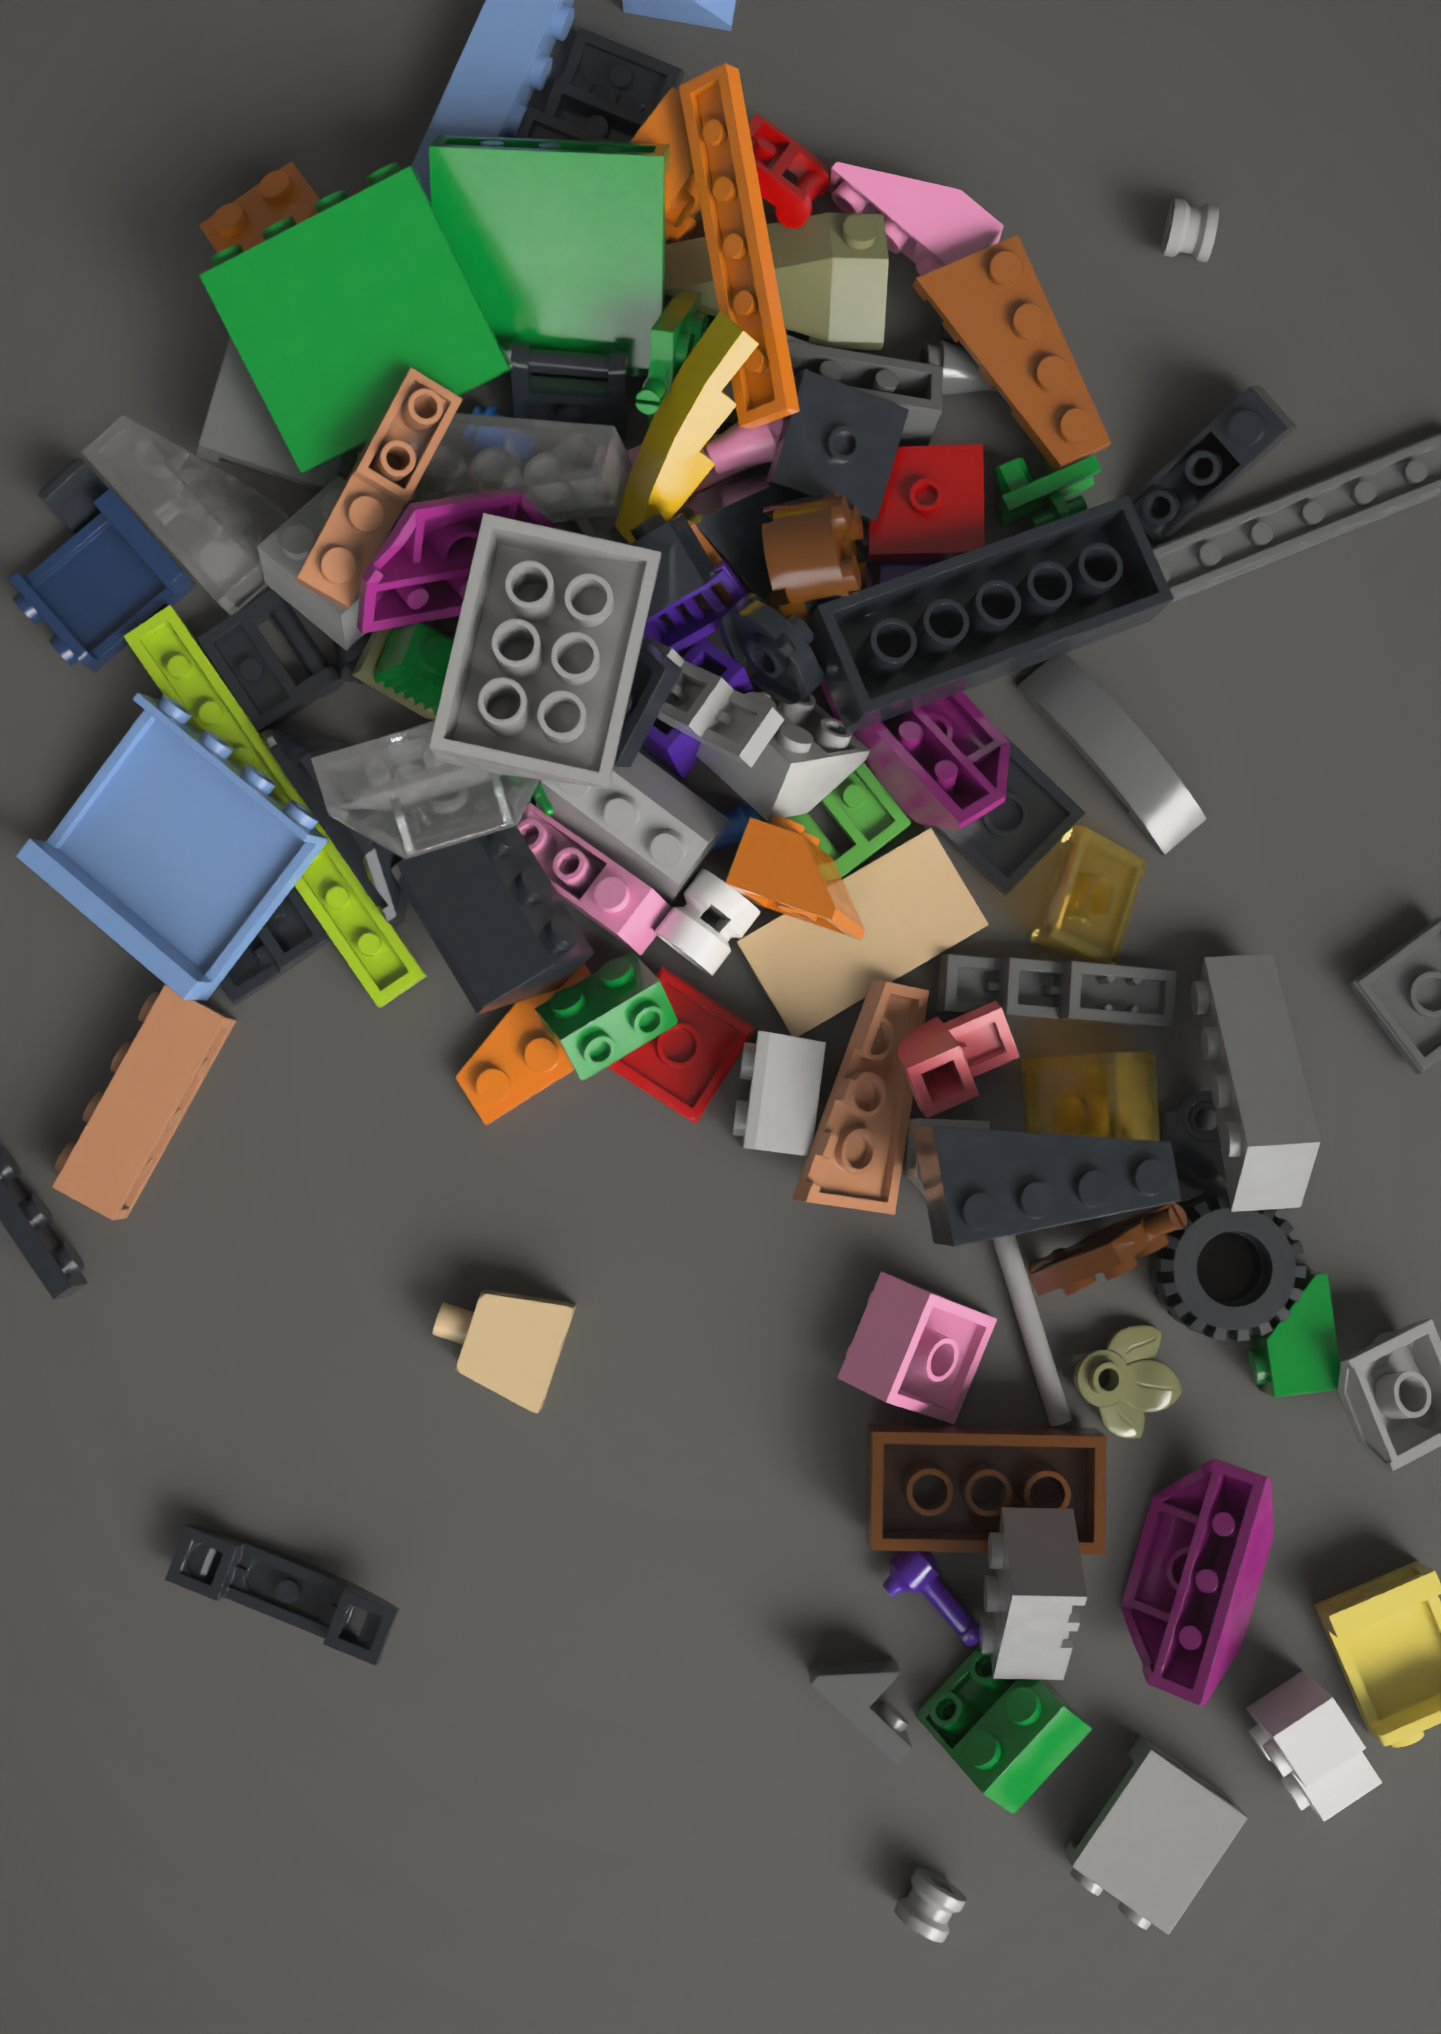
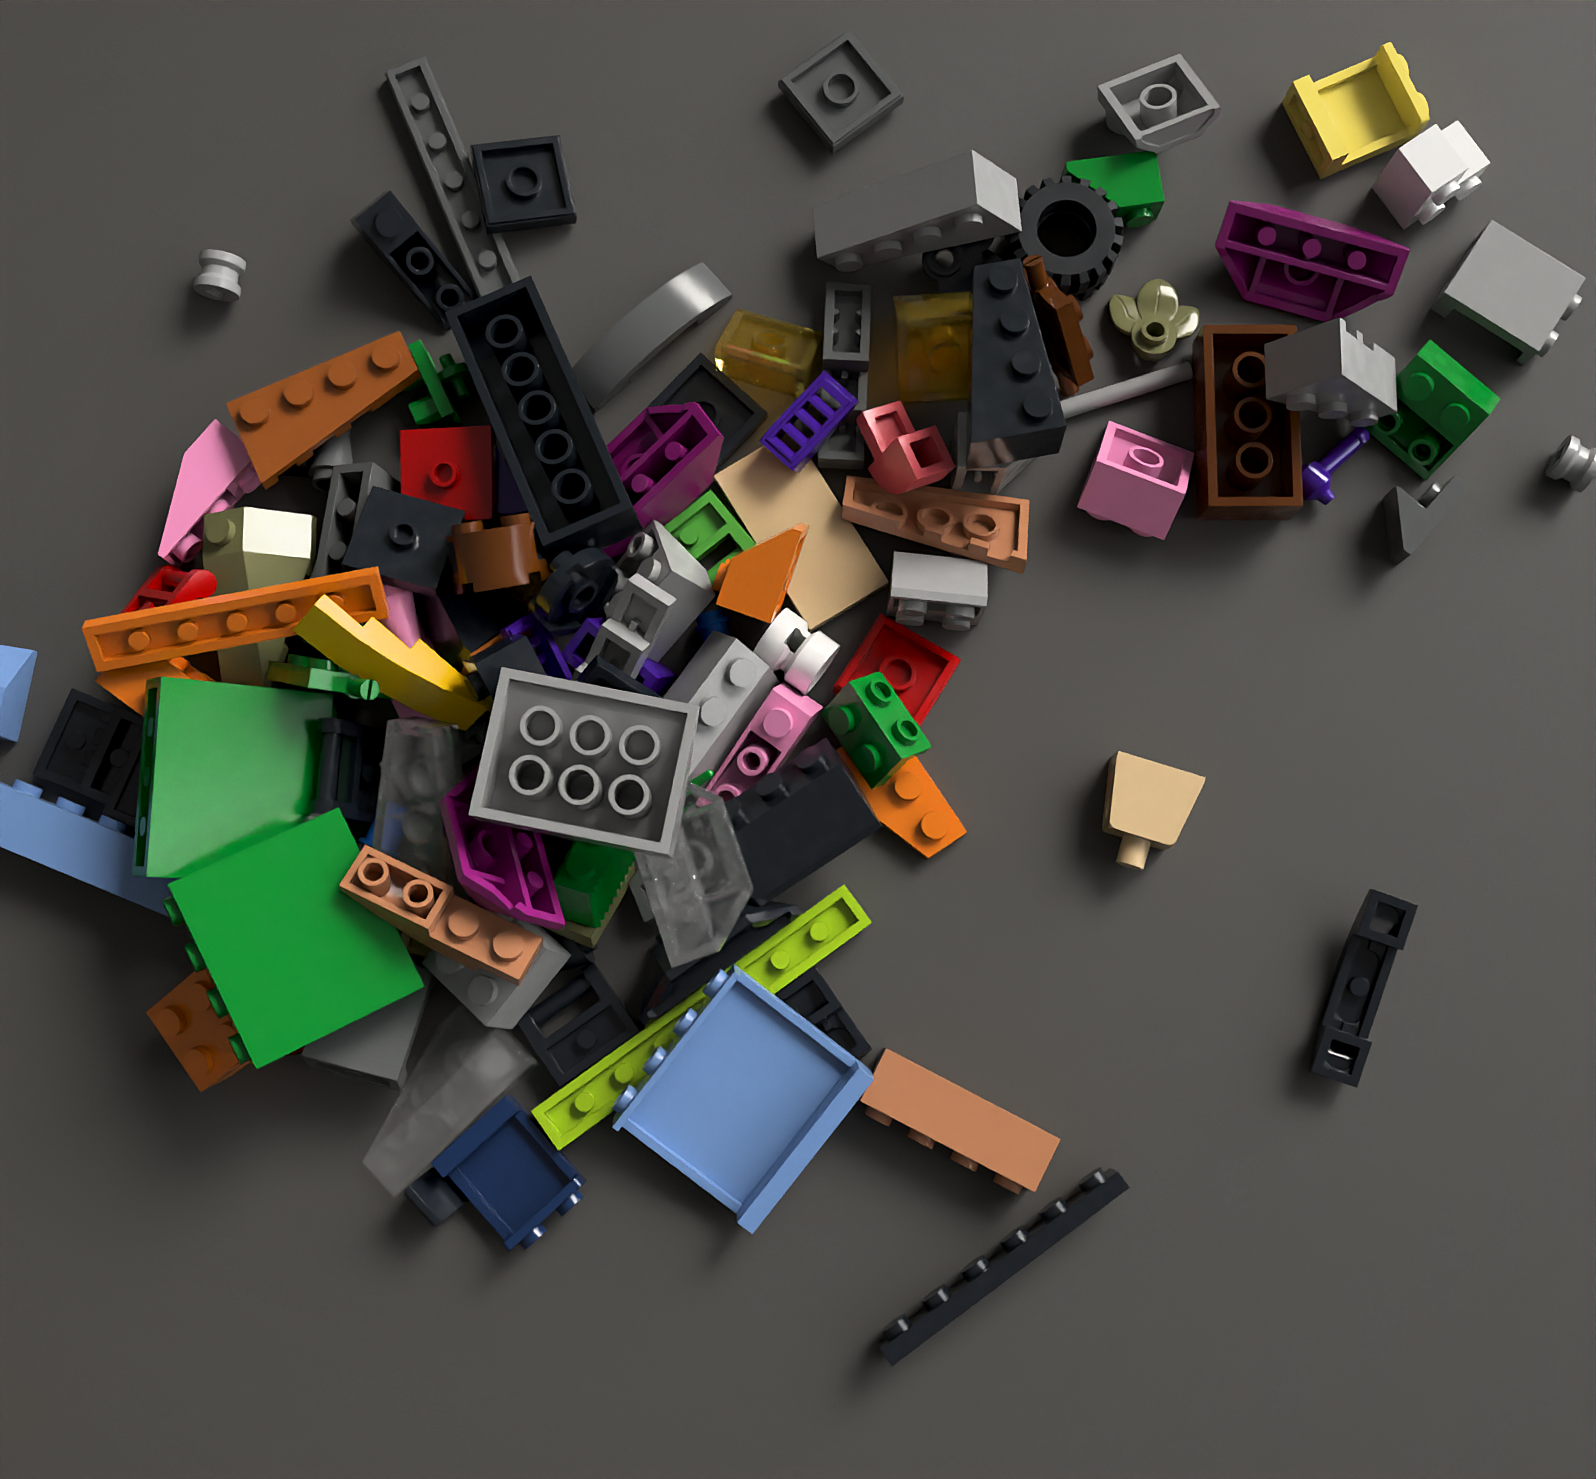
camera: 90 degrees left, 5 degrees down
(955, 908) = (785, 422): none -> dark purple slope
(1306, 597) = (523, 184): none -> black plate

